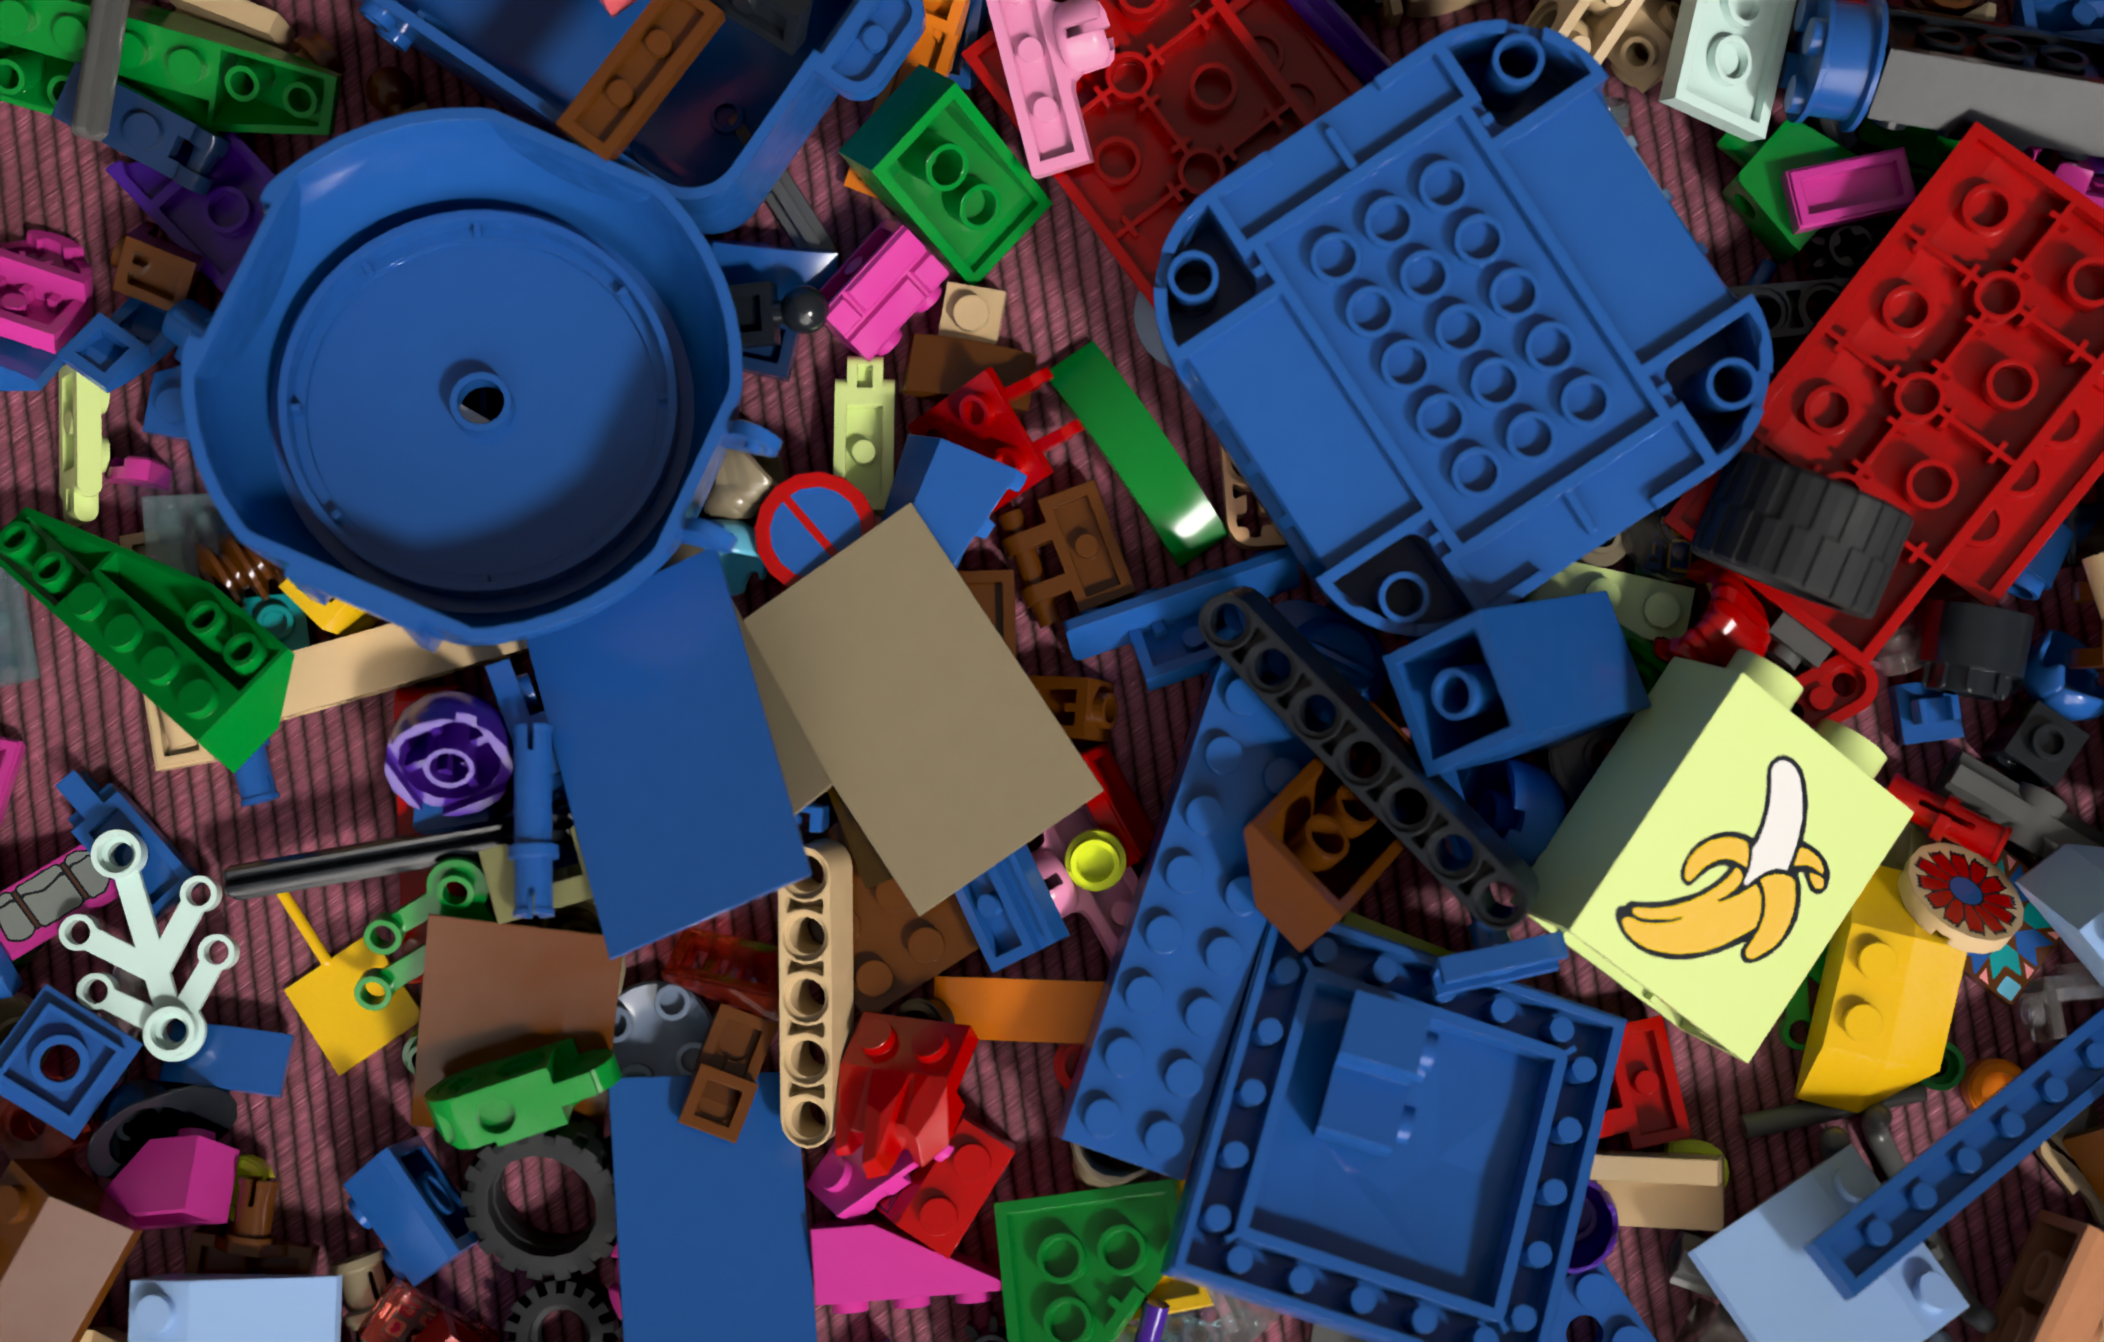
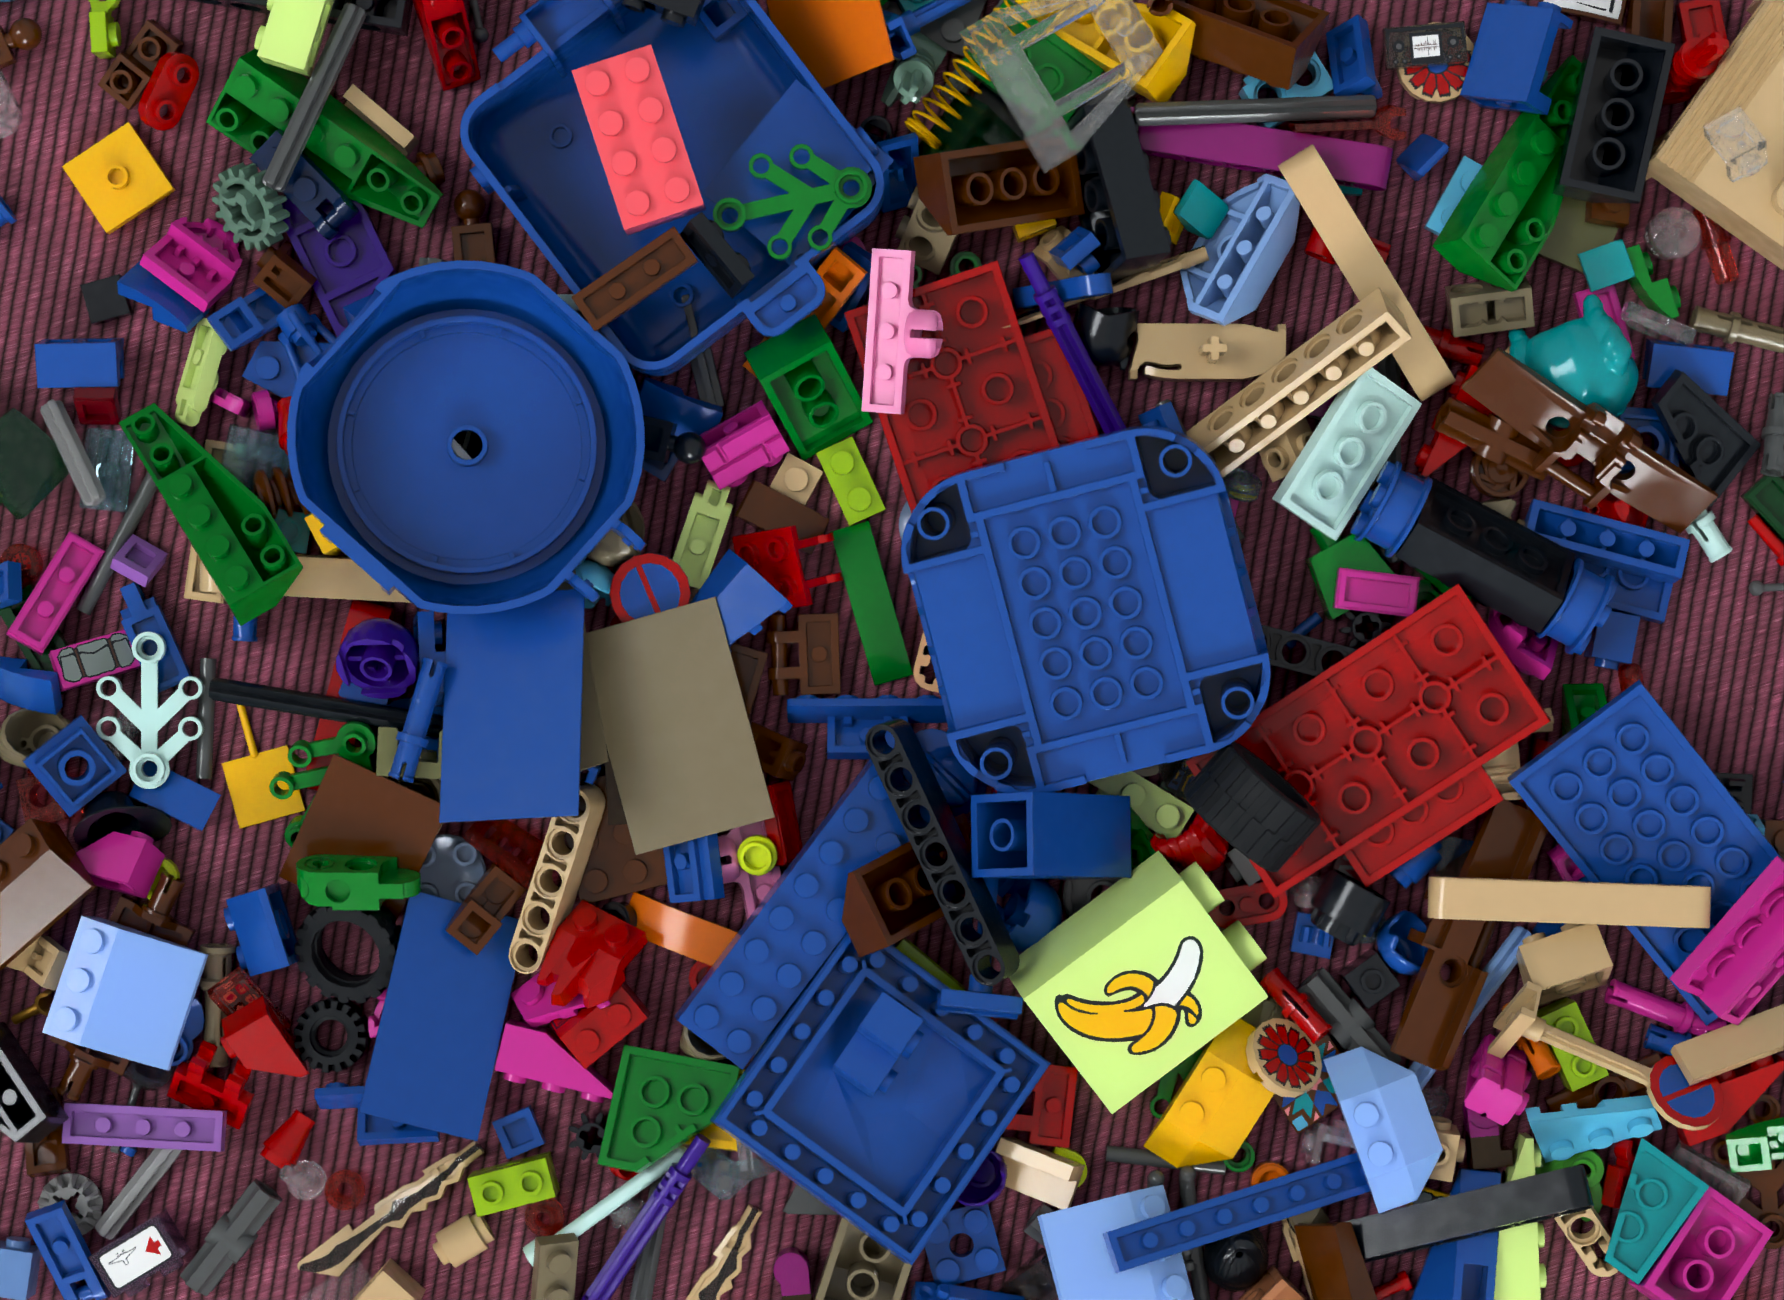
camera: 10 degrees right, 5 degrees up
(39, 729) = (124, 532): none -> dark grey bar
(73, 738) = (138, 560): none -> medium lavender plate
(76, 183) = (250, 207): none -> sand green gear
(181, 460) = (264, 410): none -> dark pink tile
(240, 928) = (206, 712): none -> dark grey bar
(1049, 294) = (850, 481): none -> lime plate
(1996, 1225) = (1237, 1260): none -> black hair

